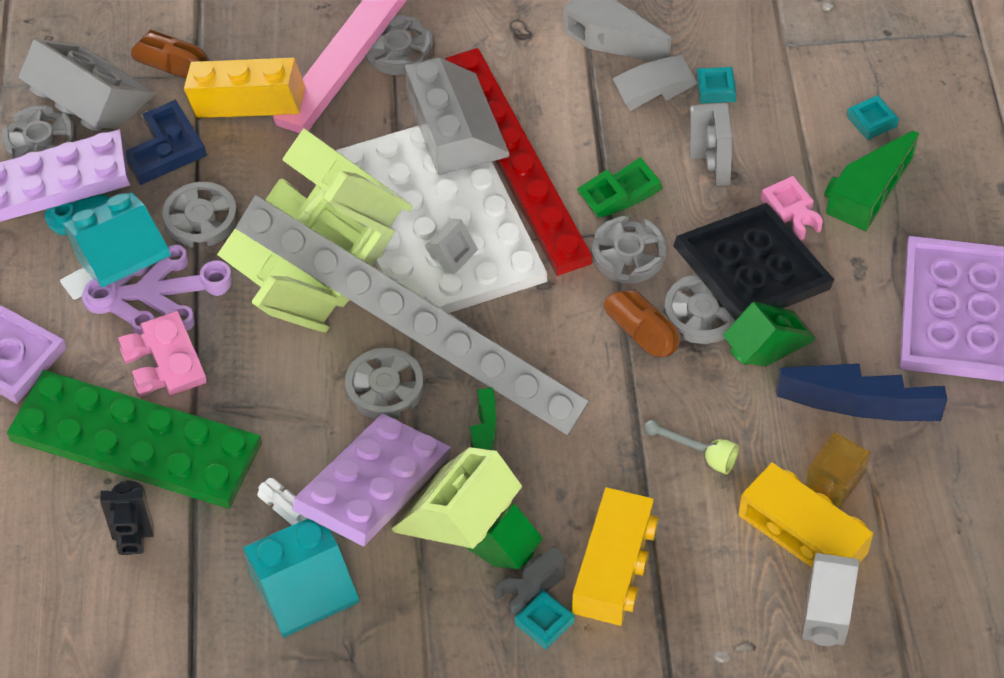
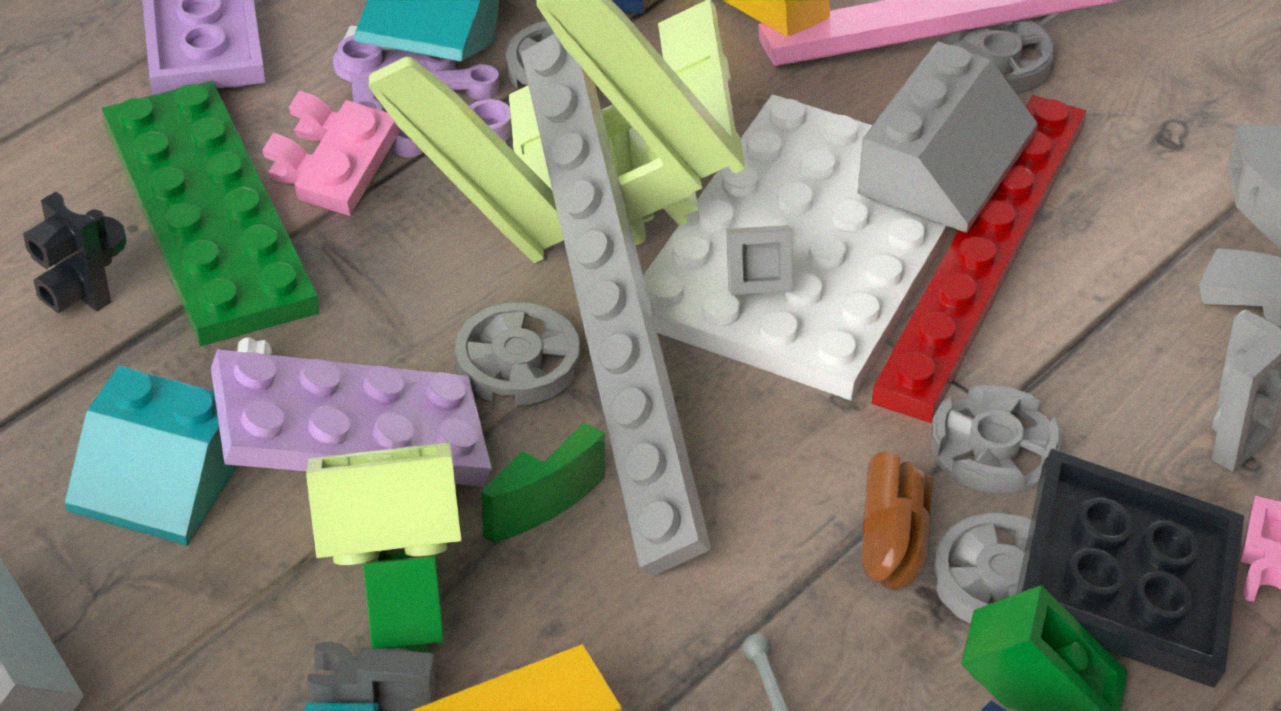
camera: 45 degrees right, 10 degrees down
(624, 189) = (1053, 366): green slope -> none

